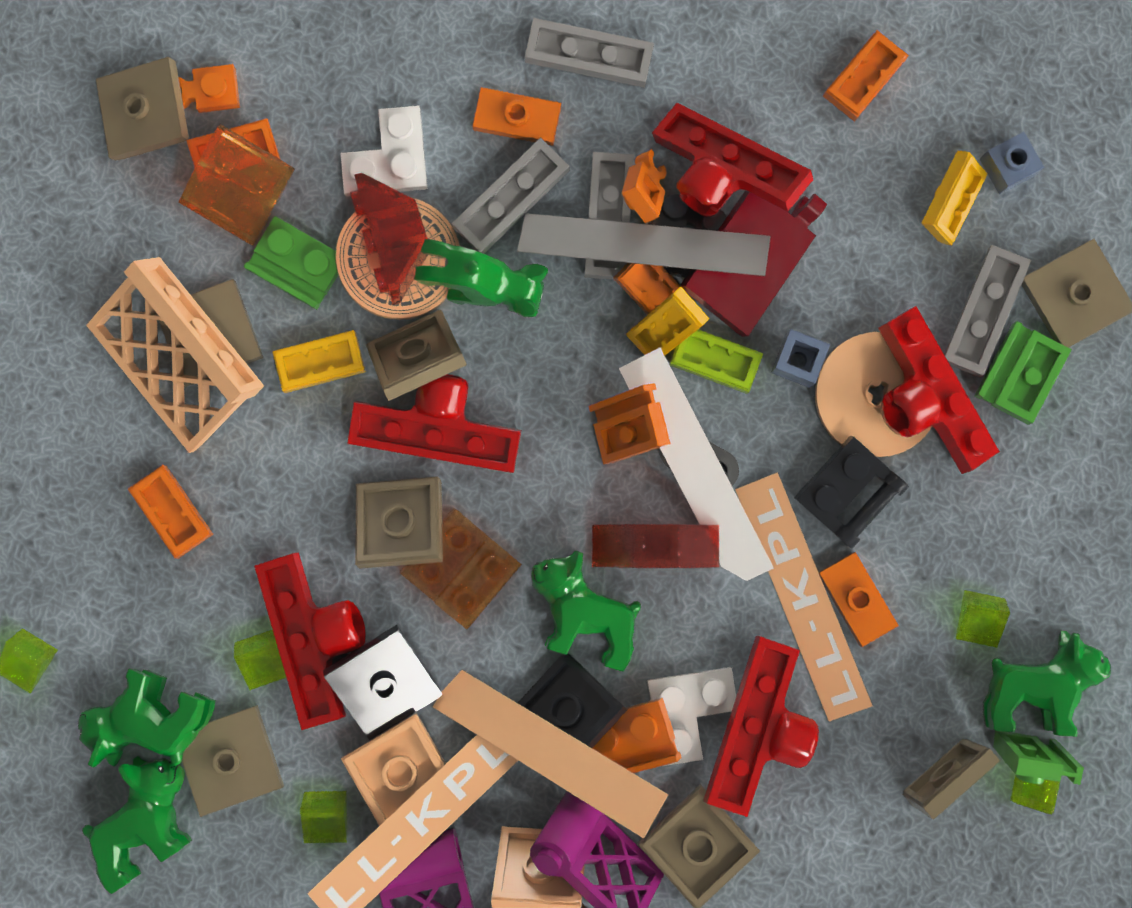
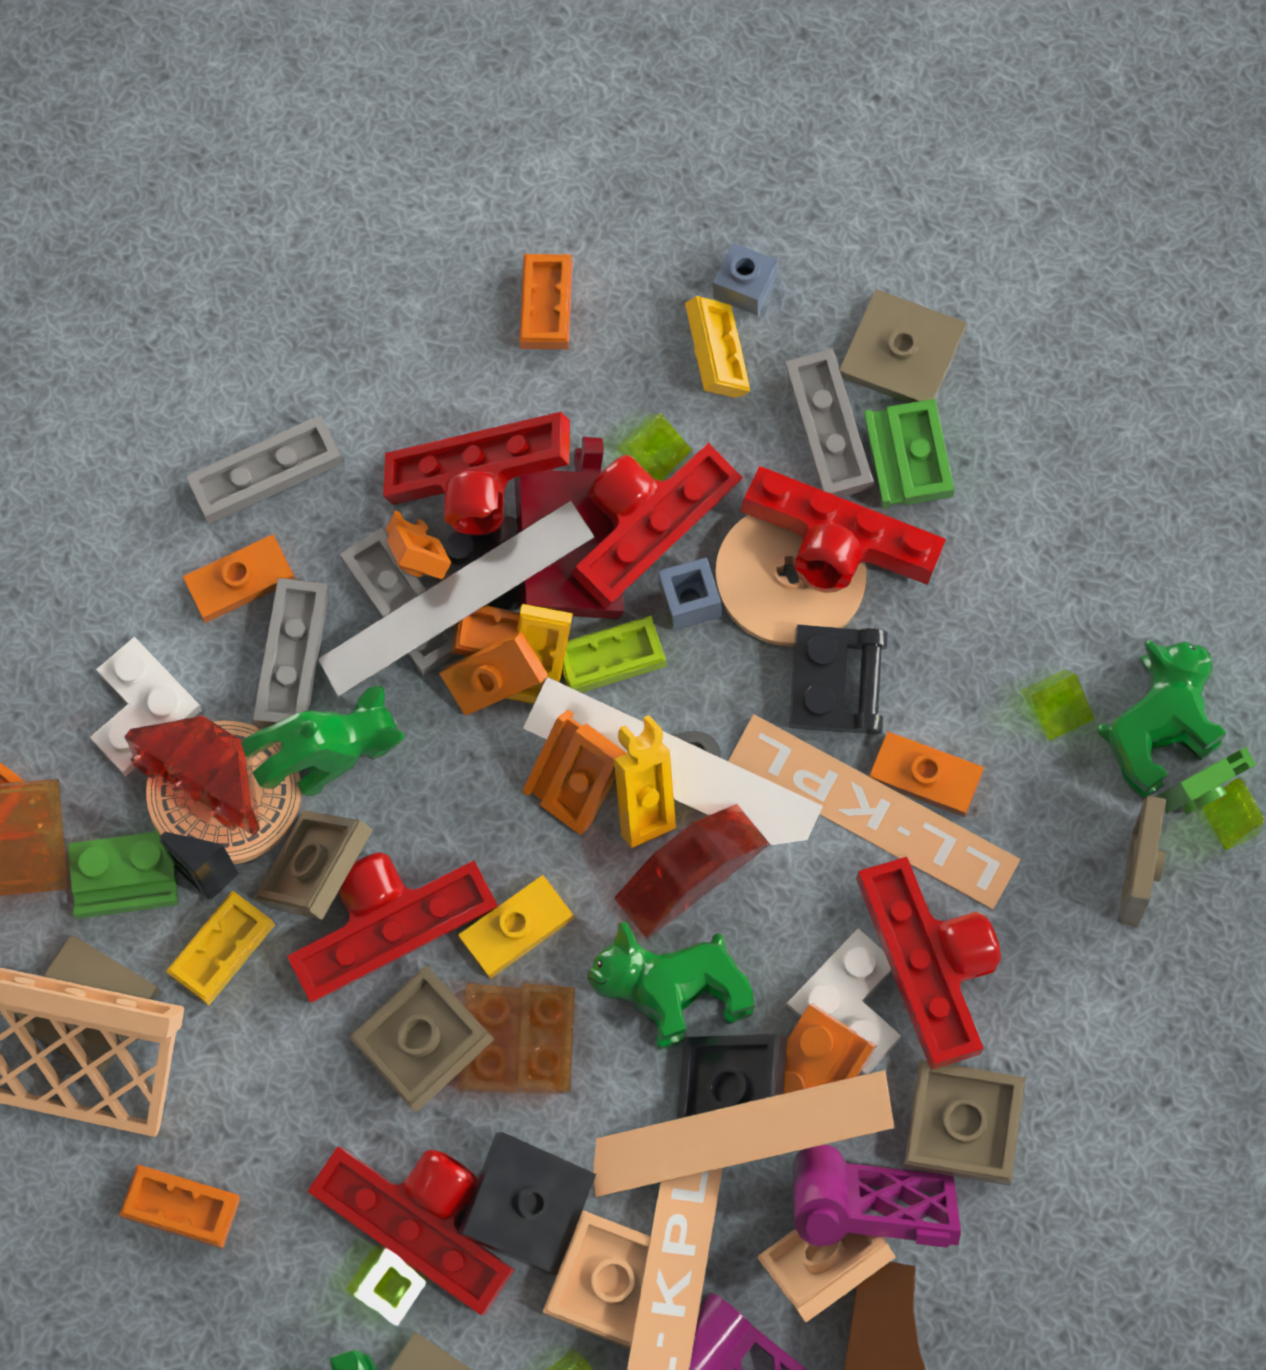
camera: 30 degrees left, 15 degrees down
(338, 299) = (200, 862): none -> black slope
(516, 493) = (516, 926): none -> yellow plate
(628, 316) = (493, 674): none -> orange plate
(666, 471) = (644, 785): none -> yellow plate
(814, 285) = (648, 517): none -> red plate
(858, 235) = (656, 446): none -> clear neon green slope

